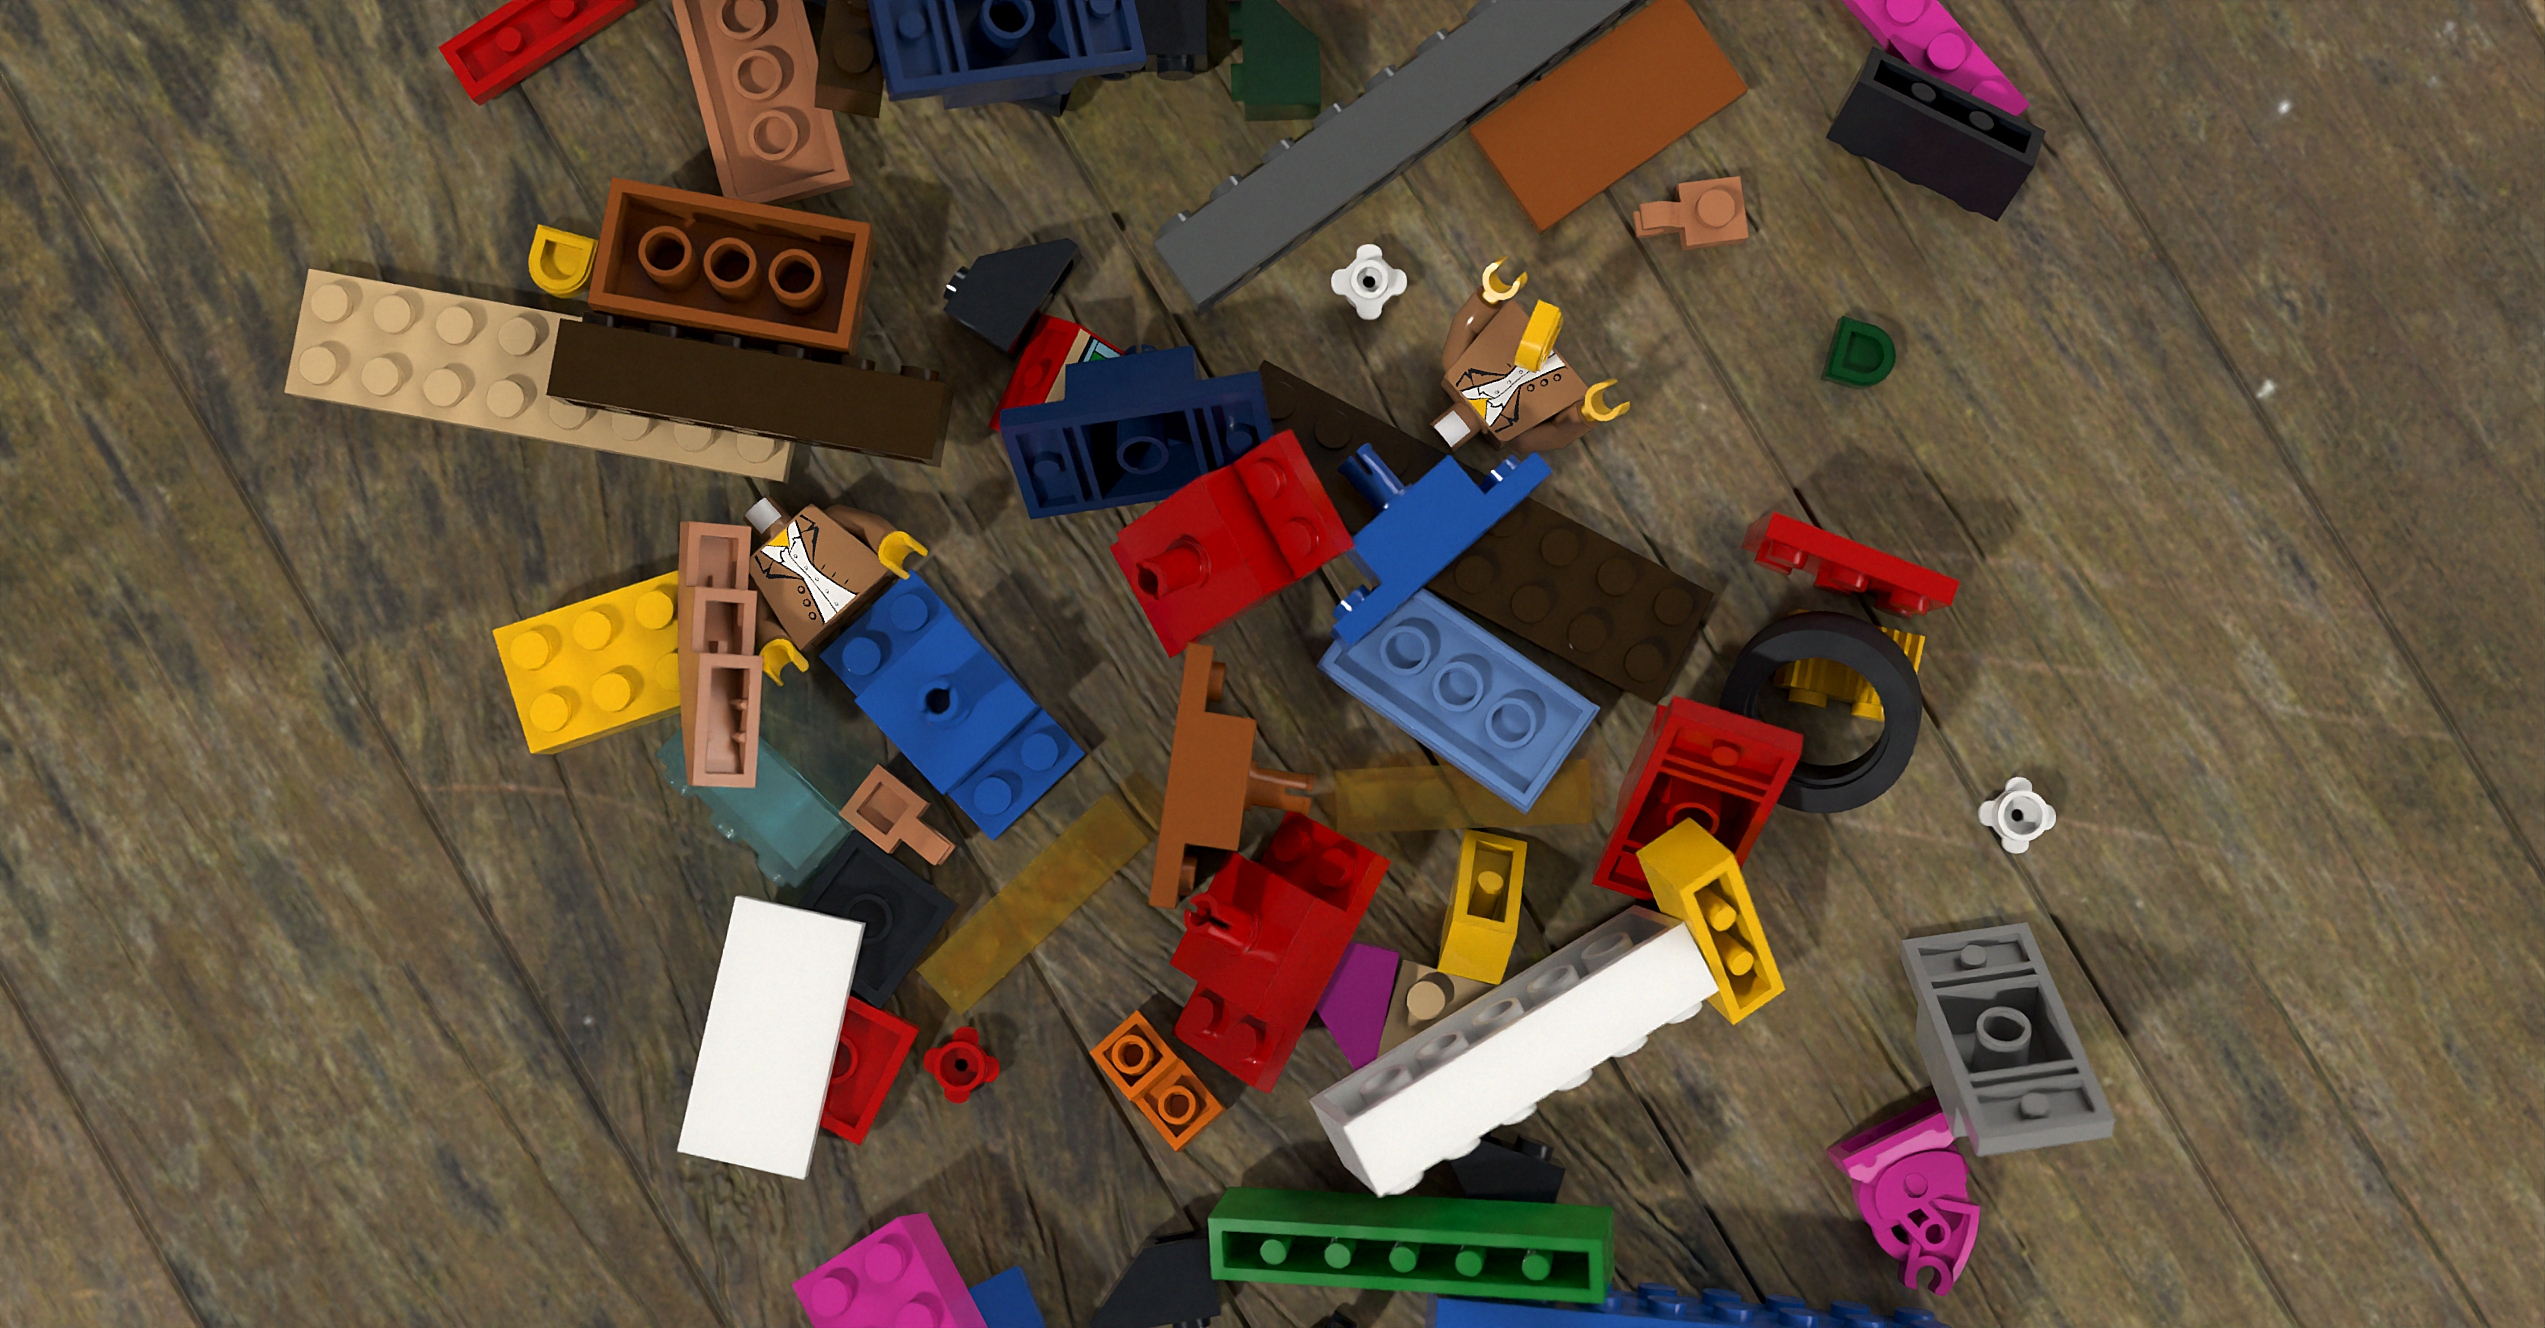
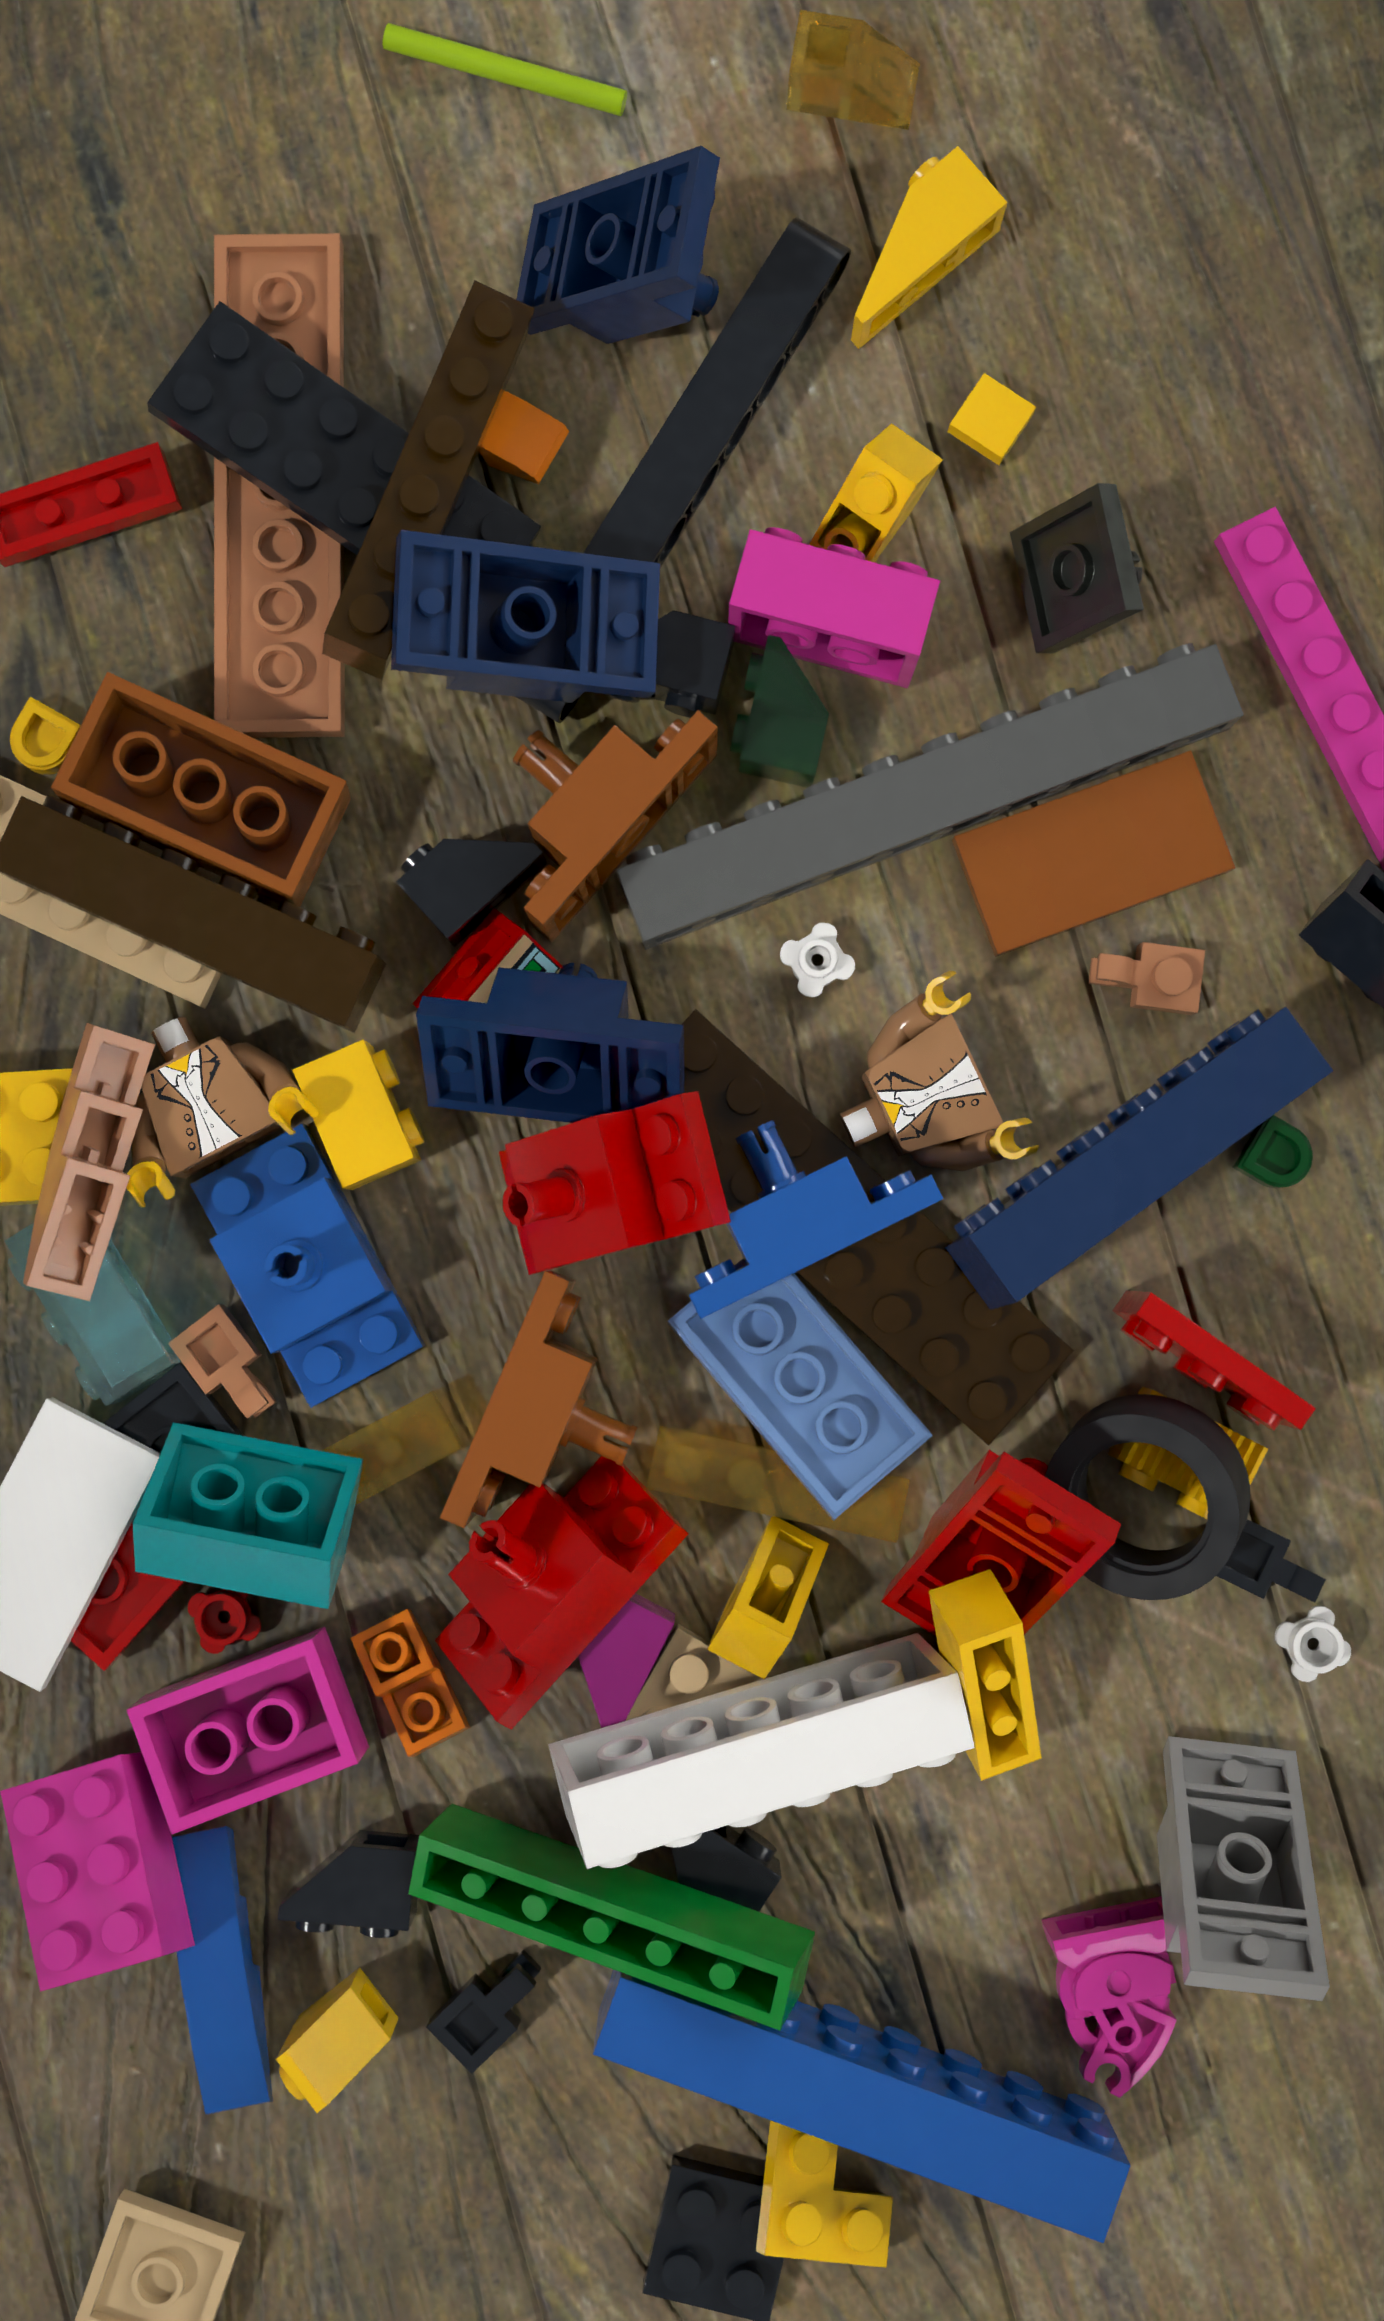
camera: 20 degrees right, 0 degrees up
(960, 957) = (247, 1515): none -> teal slope
(966, 545) = (359, 1114): none -> yellow brick
(1015, 1164) = (248, 1730): none -> dark pink brick
(1125, 188) = (603, 809): none -> dark orange brick
(1539, 337) = (966, 1060): yellow tile -> none
(1735, 379) = (1147, 1152): none -> dark blue brick
(1944, 749) = (1260, 1561): none -> black plate

